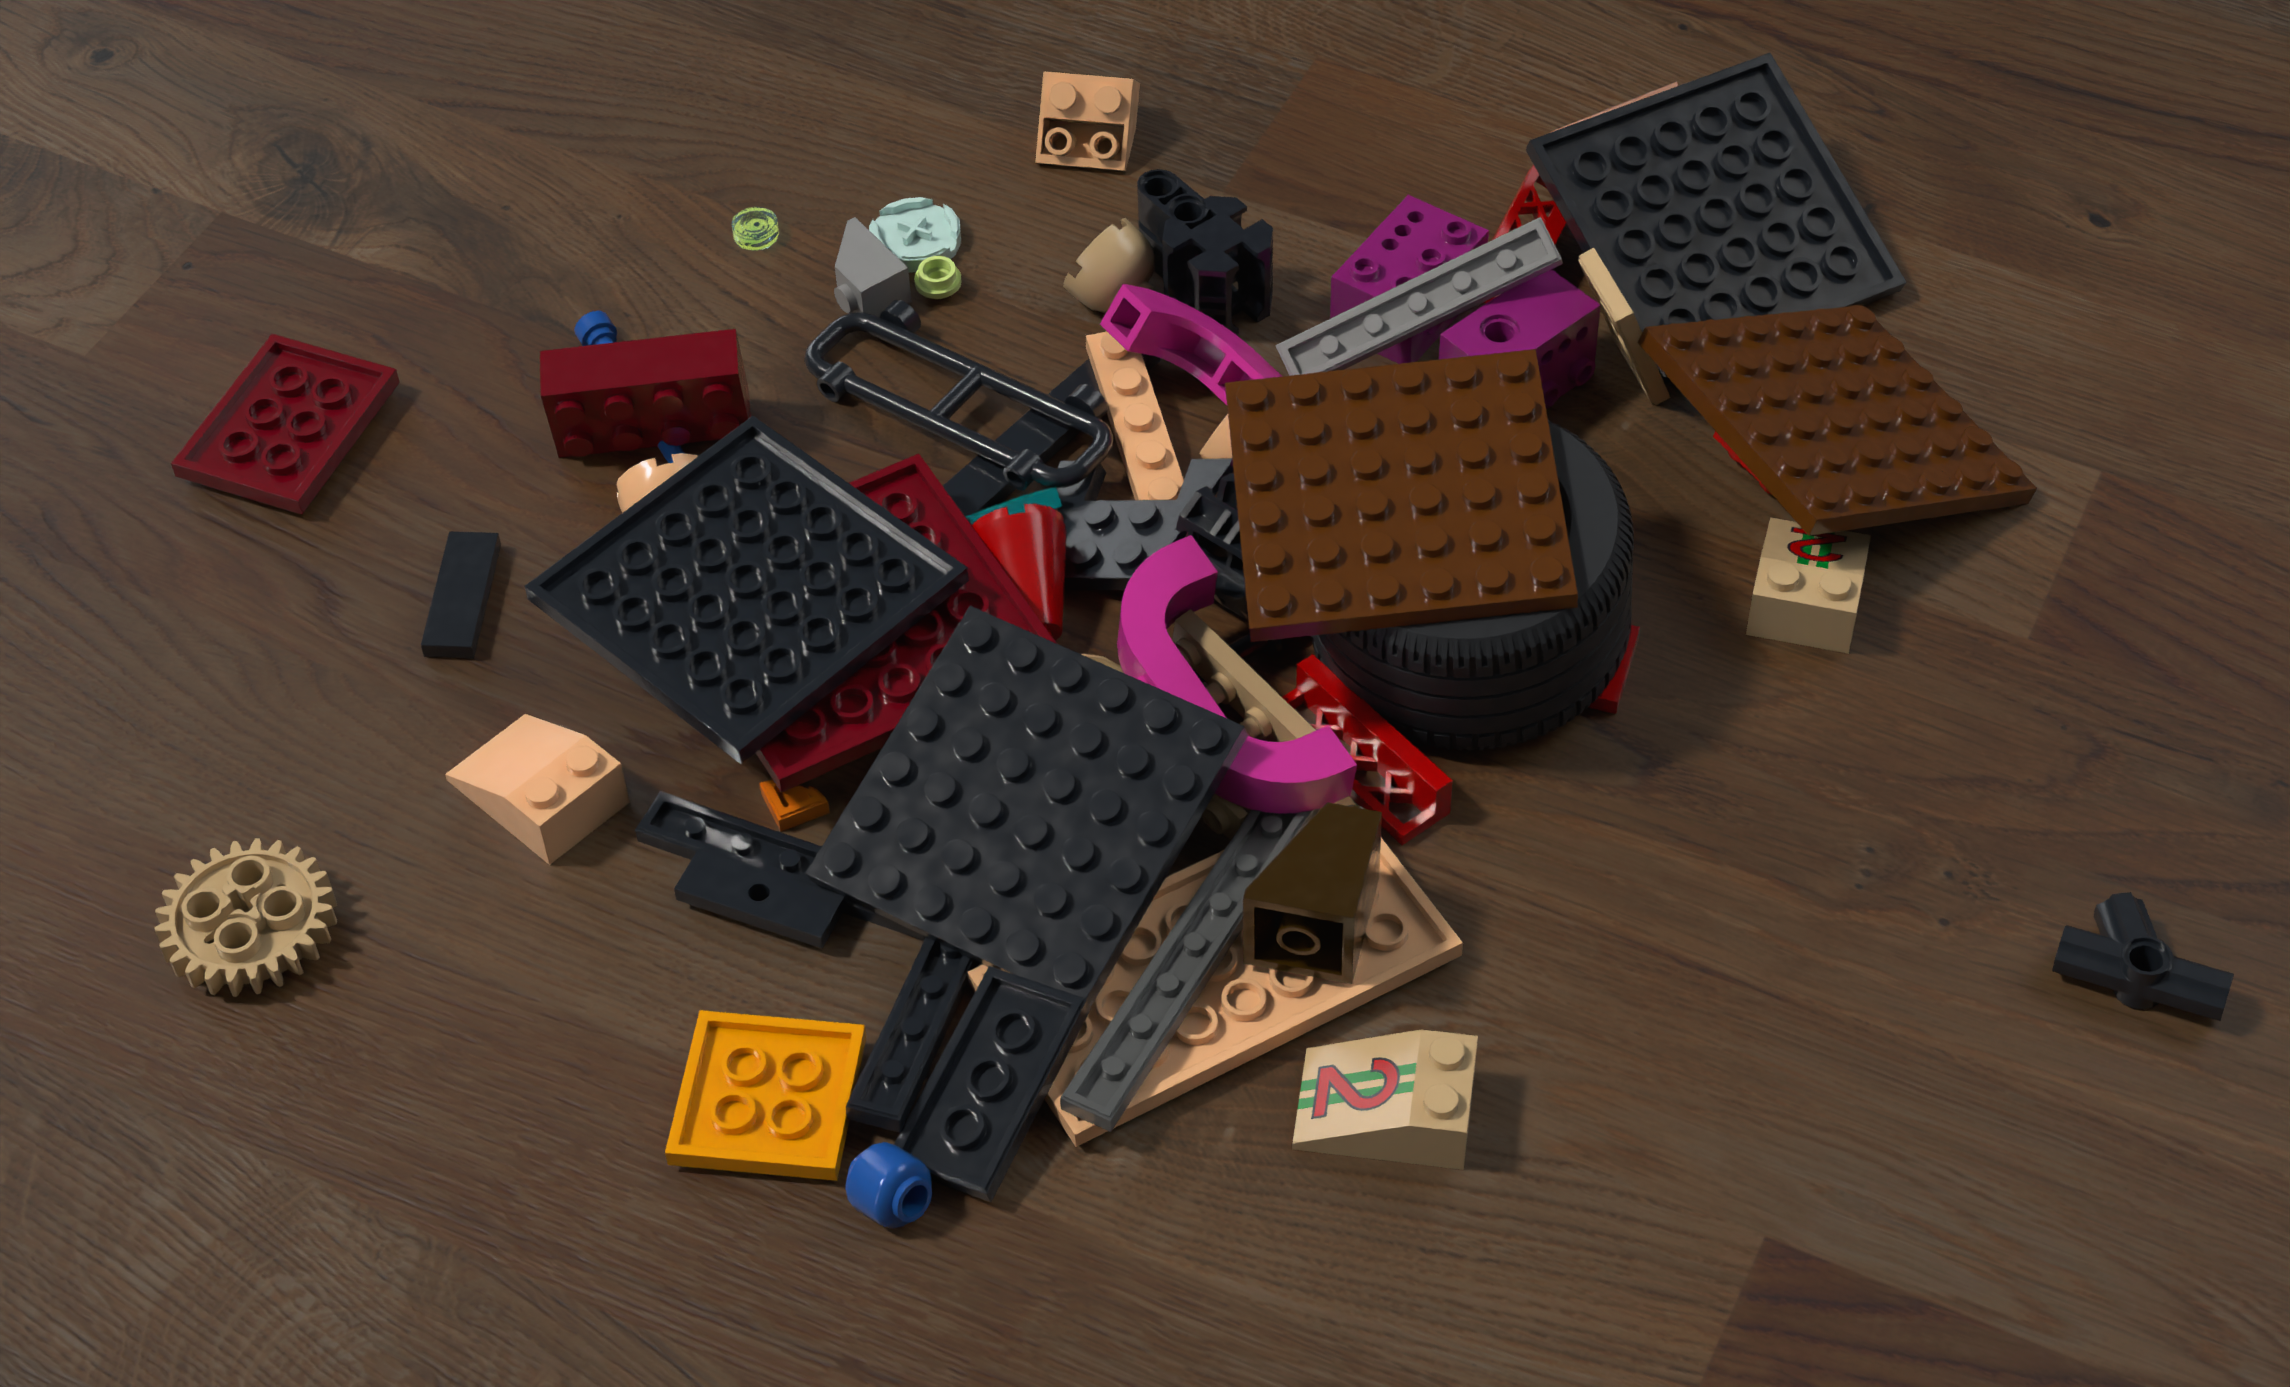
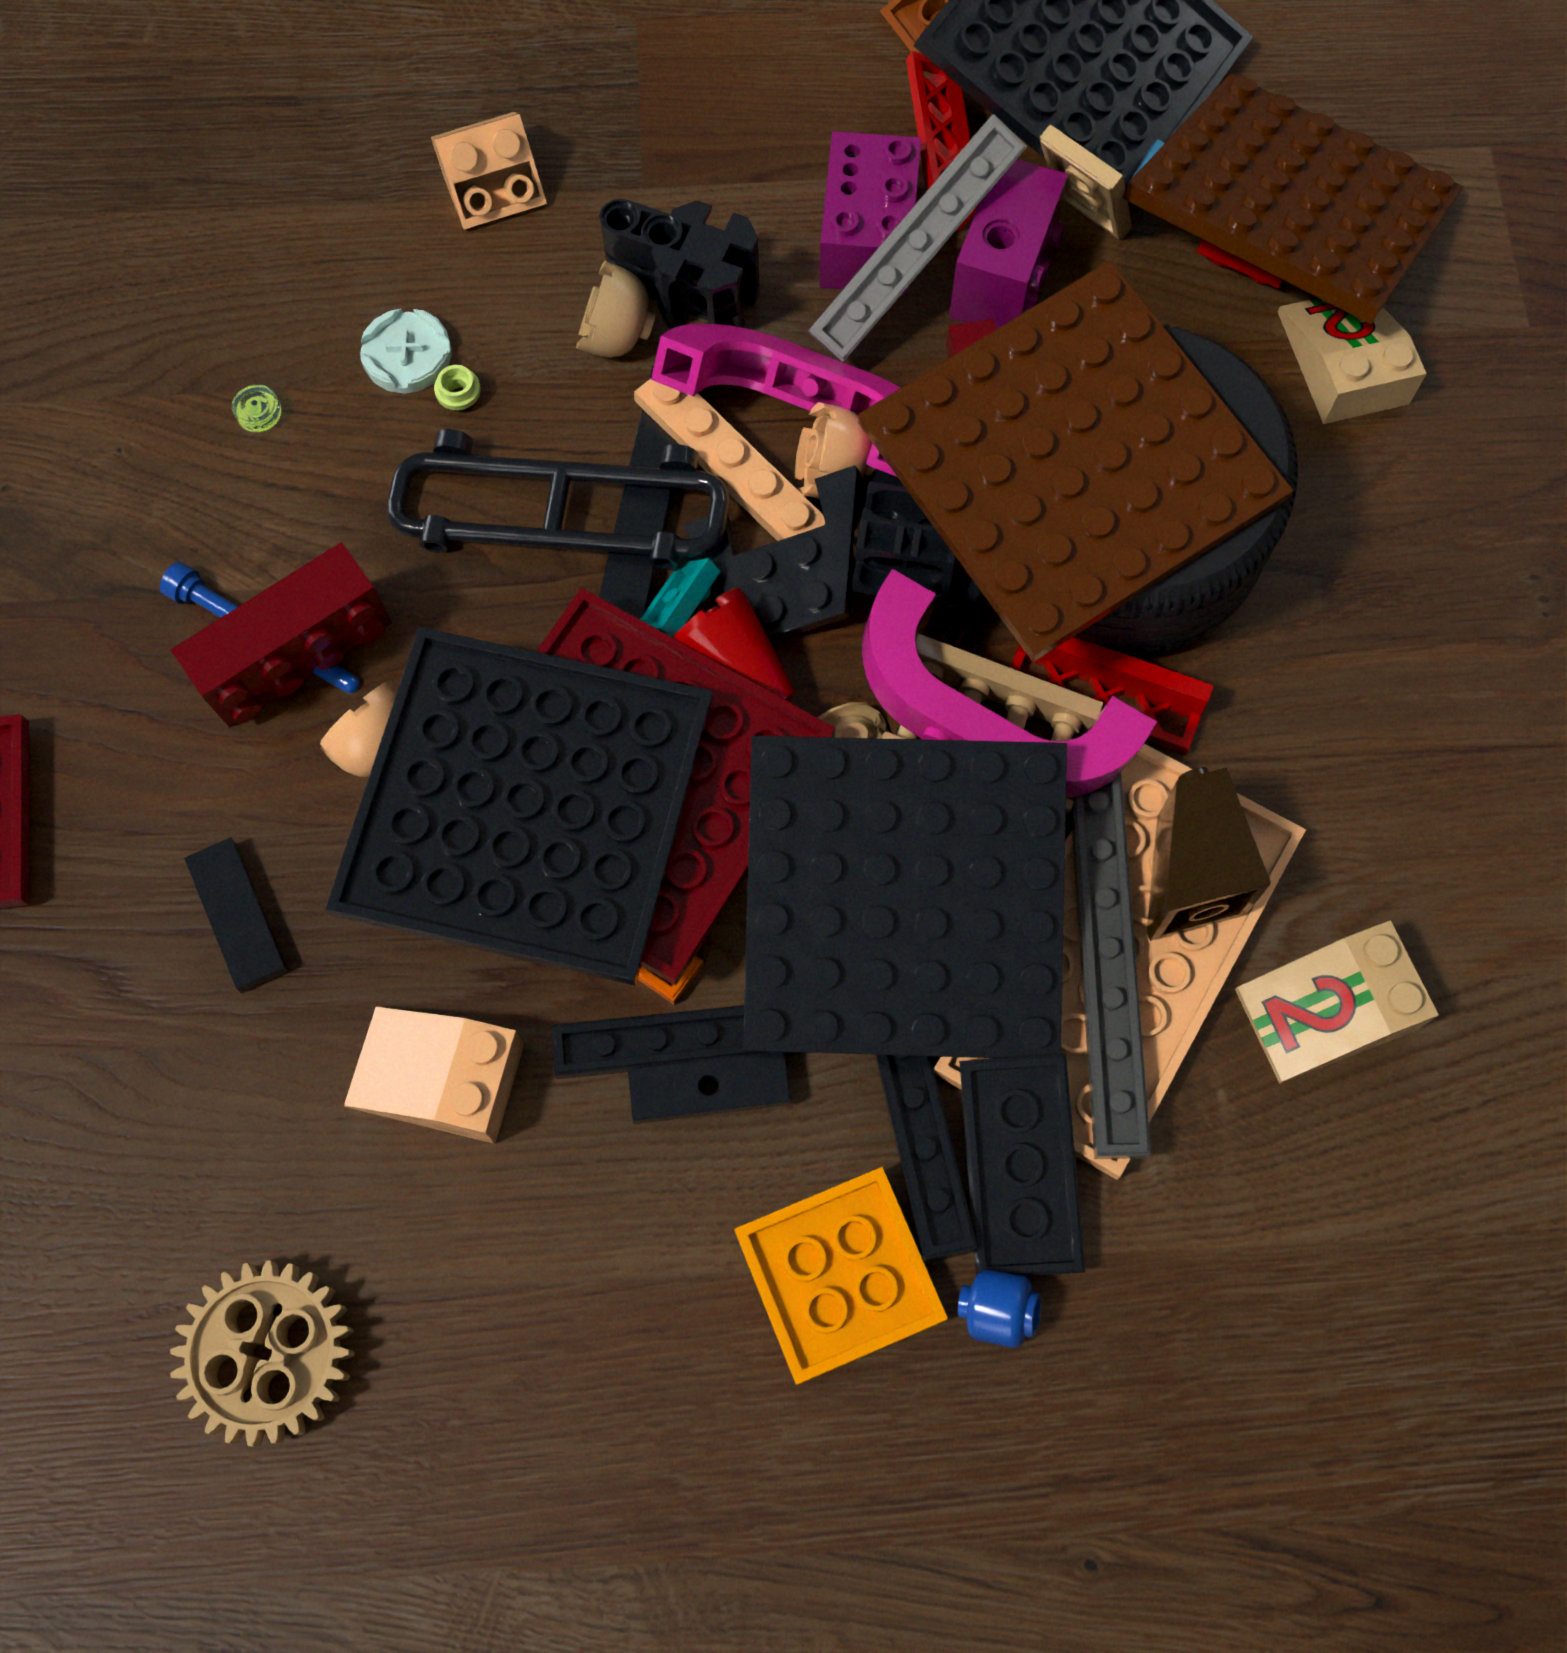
camera: 30 degrees left, 20 degrees up
(868, 273) = (397, 412): light grey slope -> none

